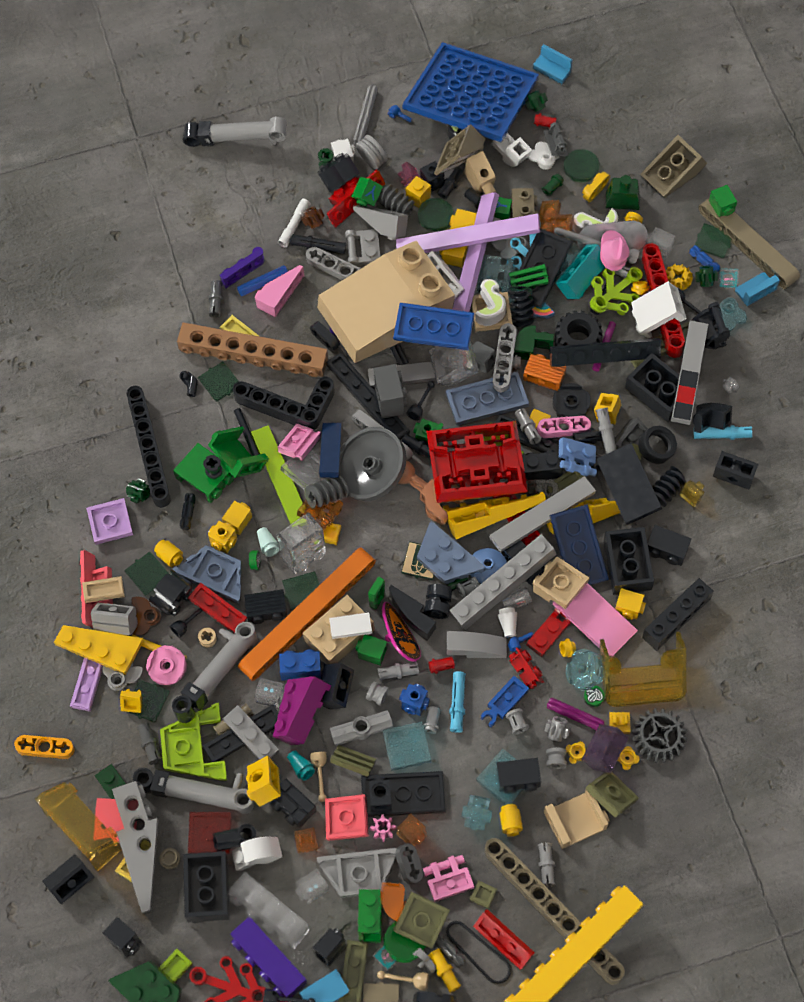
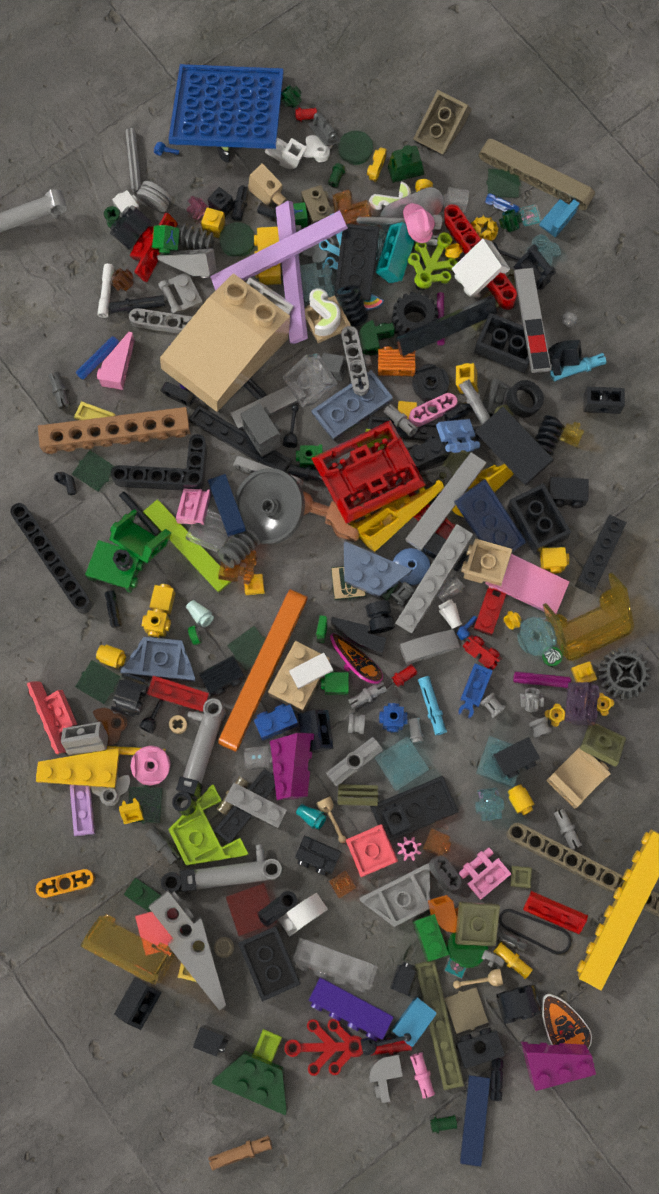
camera: 20 degrees left, 10 degrees up
(103, 589) = (63, 714): tan tile -> none
(109, 521) = (42, 644): lavender plate -> none
(138, 491) = (58, 605): dark green gear -> none
(242, 267) = (73, 351): dark purple plate -> none
(263, 781) = (284, 846): yellow brick -> none
(301, 543) = (235, 606): clear brick -> none
(311, 886) = (364, 927): clear brick -> none
(434, 326) = (282, 354): blue tile -> none
(459, 148) = (238, 167): dark tan slope -> none
(513, 275) = (348, 268): green tile -> none
(553, 64) = (293, 54): dark azure panel -> none
(723, 201) = (502, 142): green brick -> none

